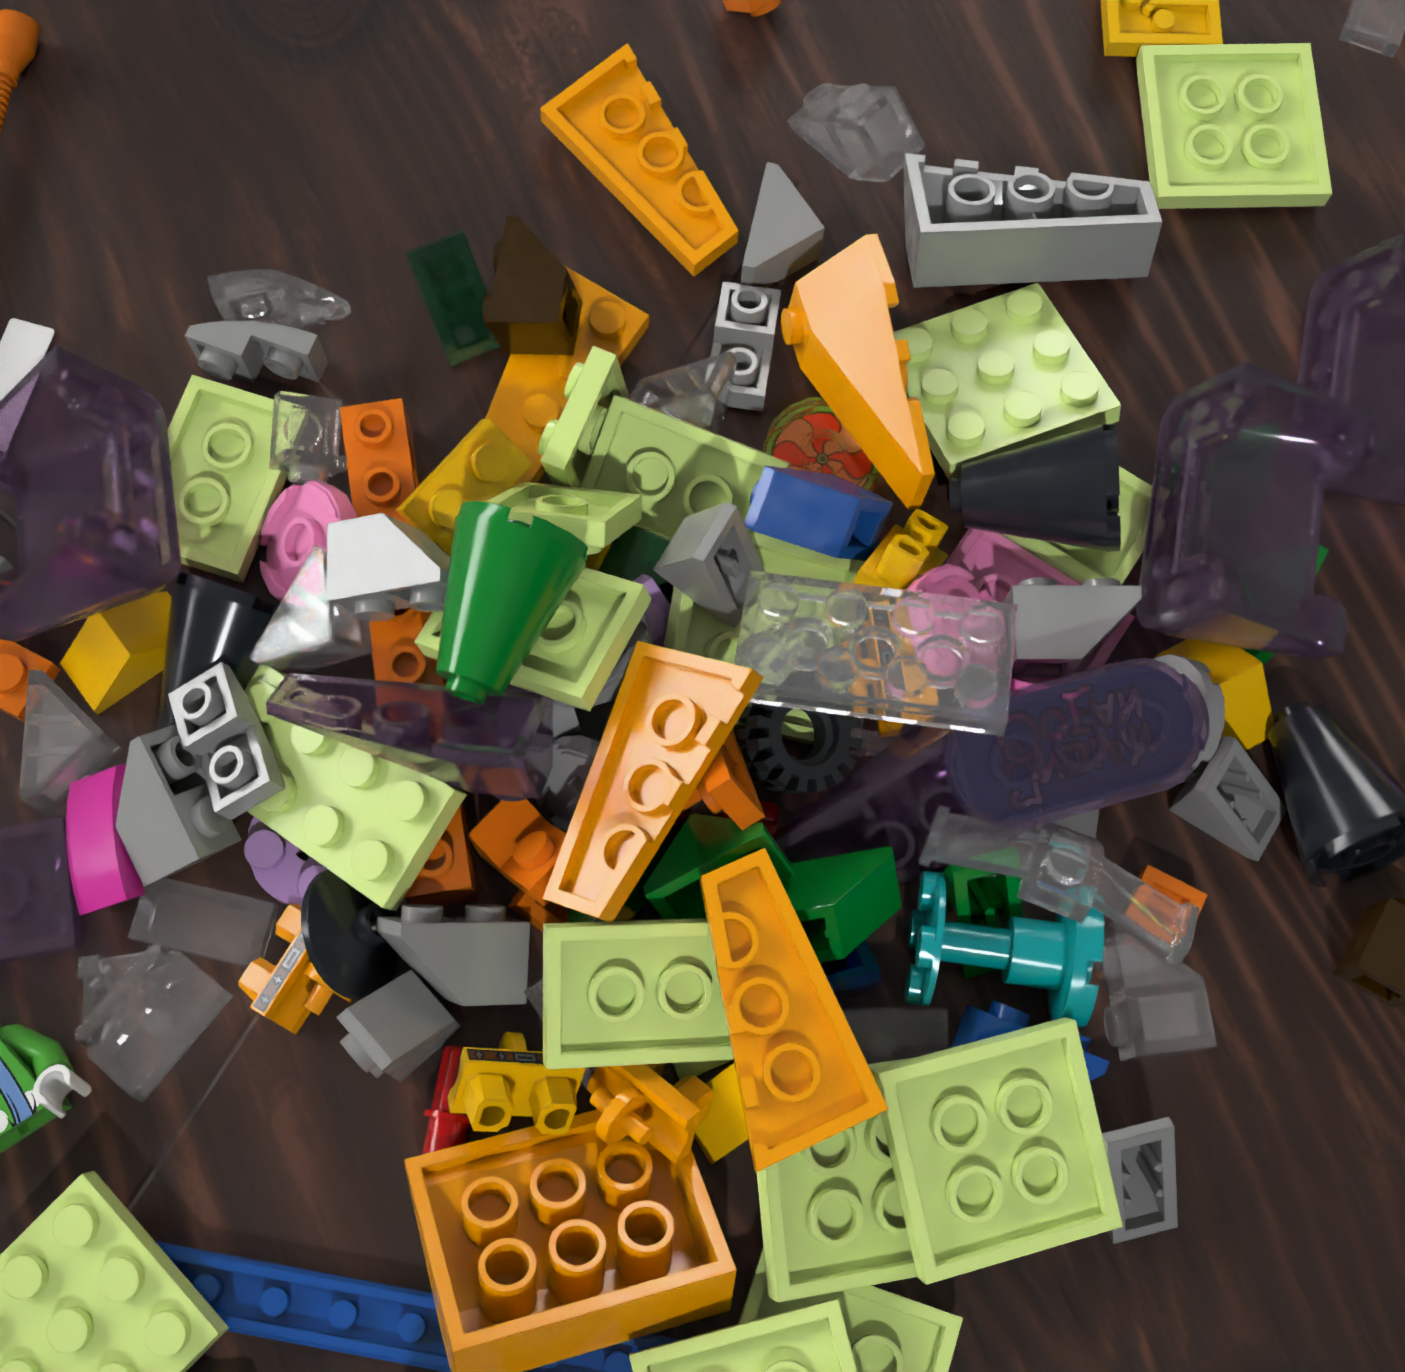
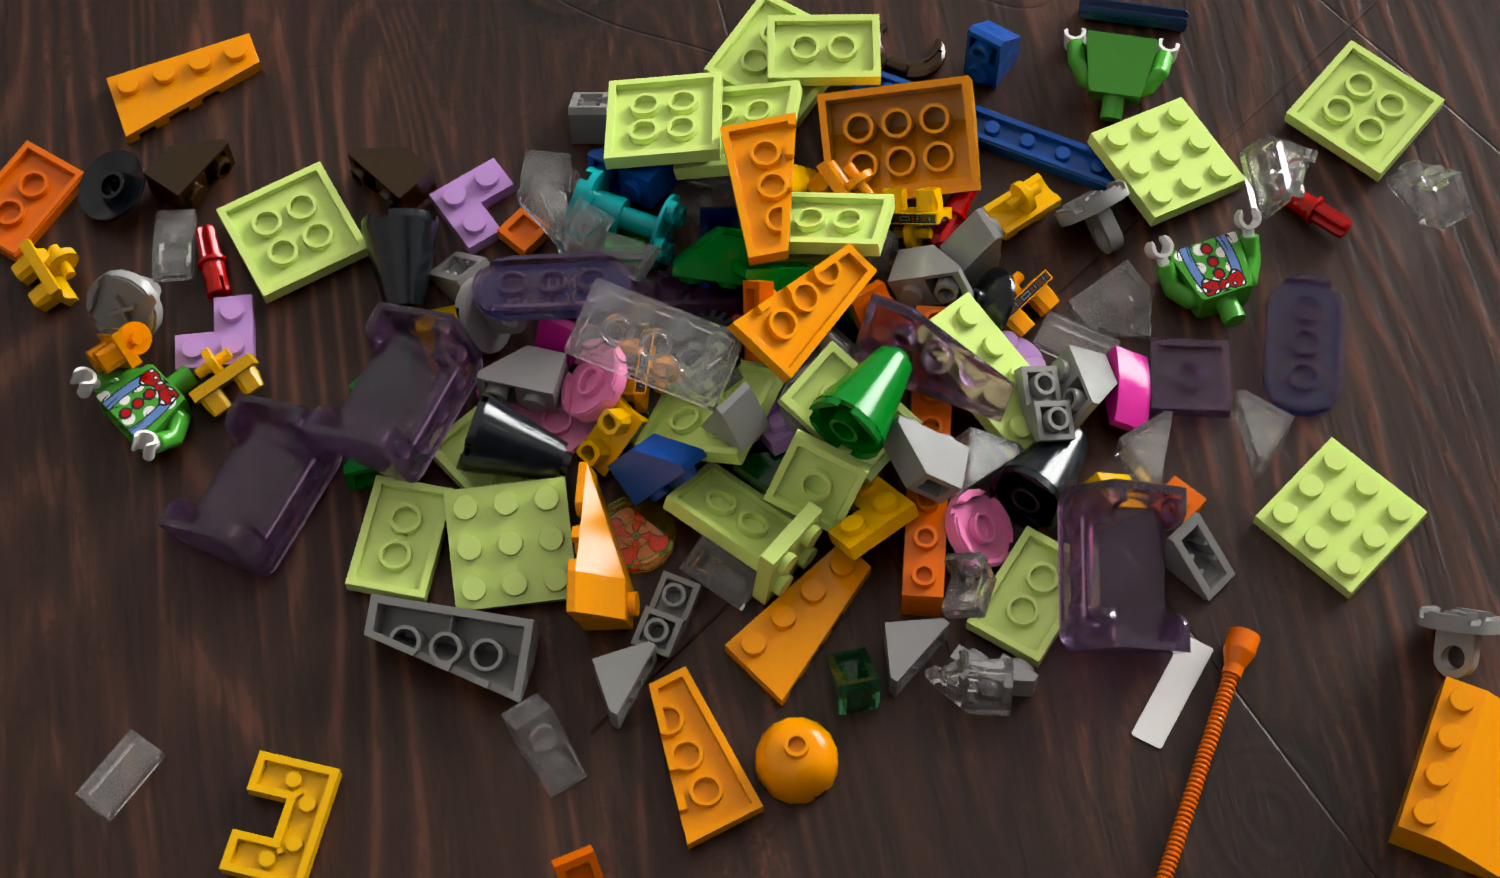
camera: 160 degrees left, 10 degrees down
(194, 1173) = (1096, 212): none -> light grey tile
(327, 1153) = (1022, 205): none -> yellow hips
(381, 358) = (910, 647): none -> light grey slope
(510, 174) = (796, 760): none -> light orange cylinder
(532, 296) = (798, 654): dark brown slope -> none
(1149, 348) = (399, 540): none -> yellowish green plate
(1233, 126) = (276, 694): yellowish green plate -> none
(1280, 949) = (465, 202): none -> lavender plate

